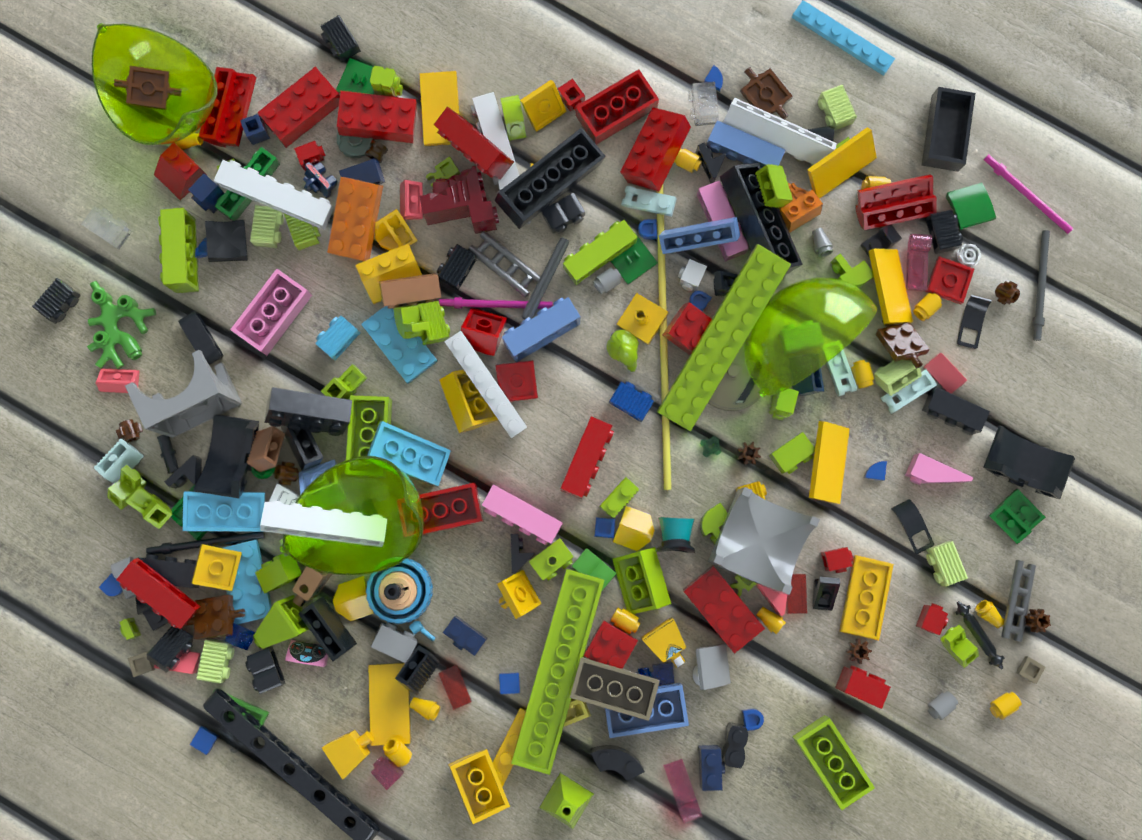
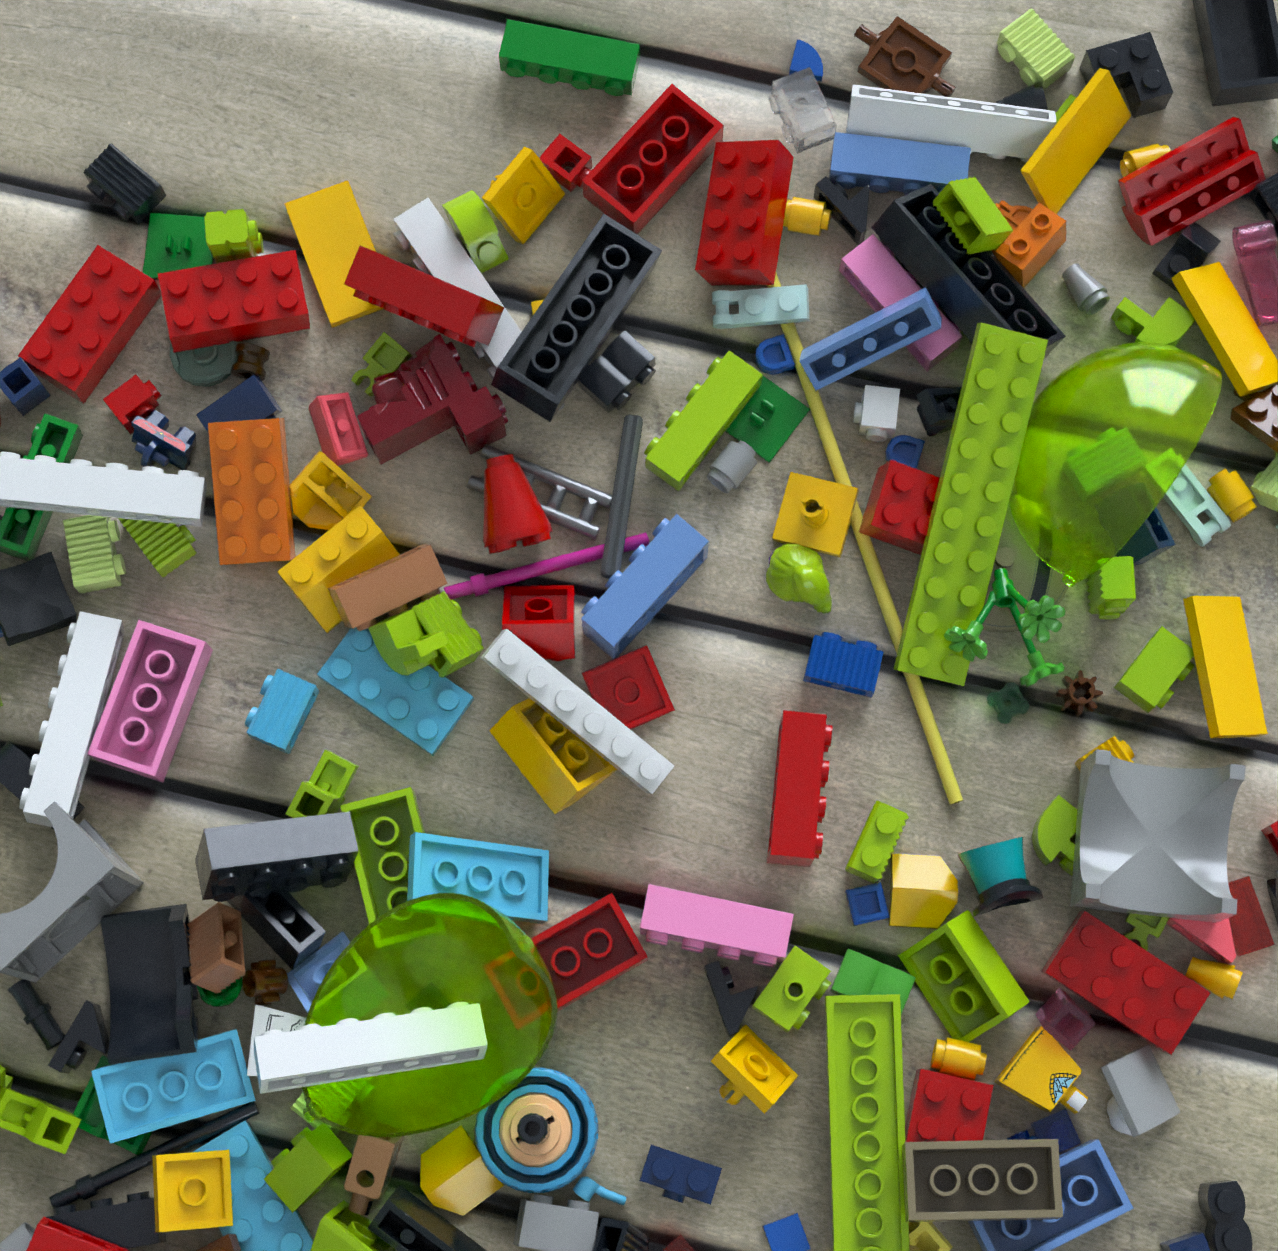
camera: 15 degrees left, 5 degrees down
(232, 303) = (74, 716): none -> white brick
(456, 267) = (457, 521): black brick -> none
(485, 267) = (511, 507): none -> red cone
(590, 39) = (569, 58): none -> green brick
(686, 618) = (1065, 1019): none -> clear pink brick
(736, 409) = (1036, 620): none -> bright green plant
(752, 719) = (1240, 1164): blue tile -> none
(887, 134) = (1135, 69): none -> black brick

